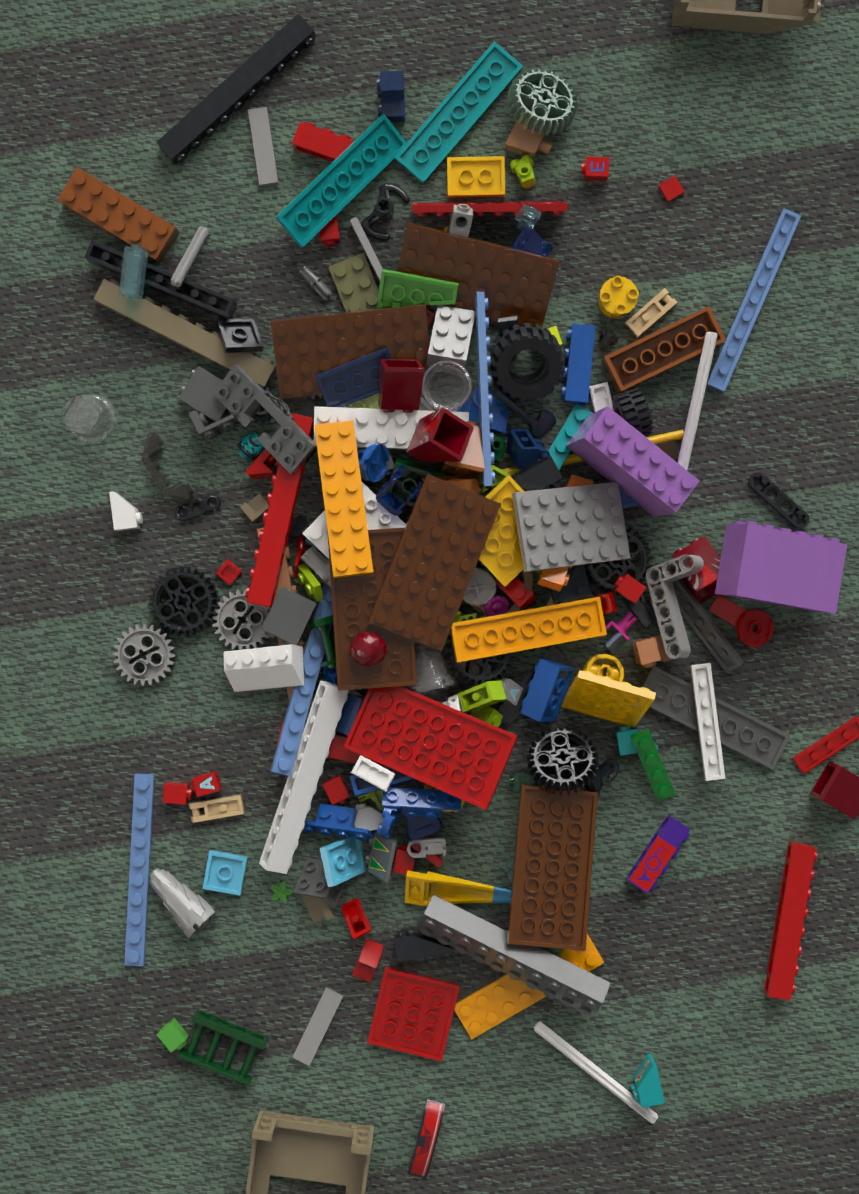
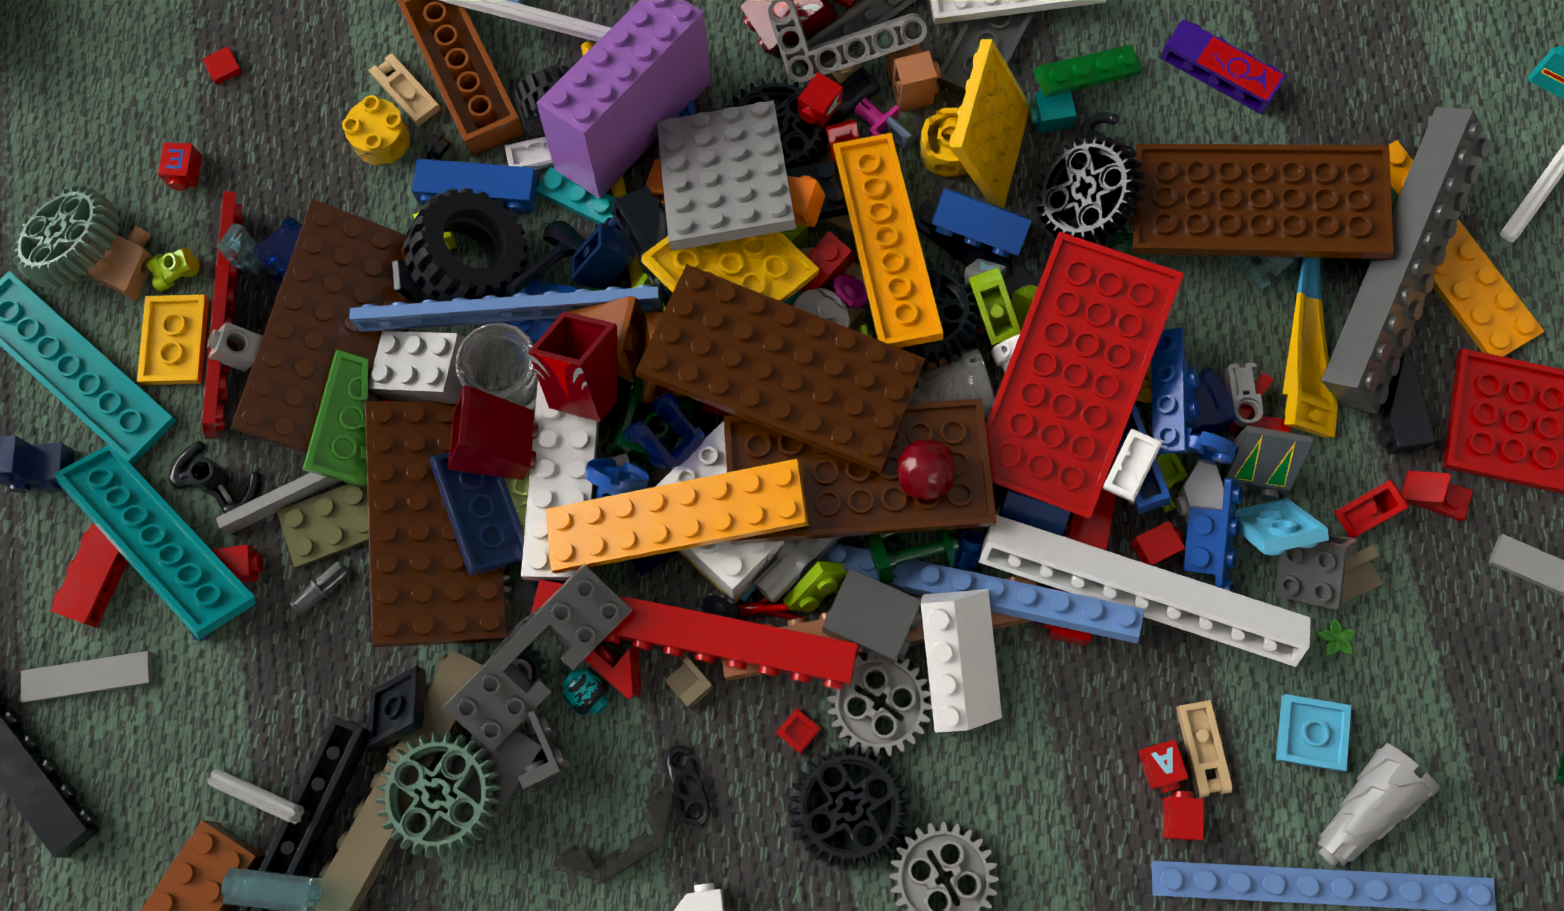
camera: 90 degrees left, 15 degrees down
(190, 357) = (397, 779): none -> sand green gear

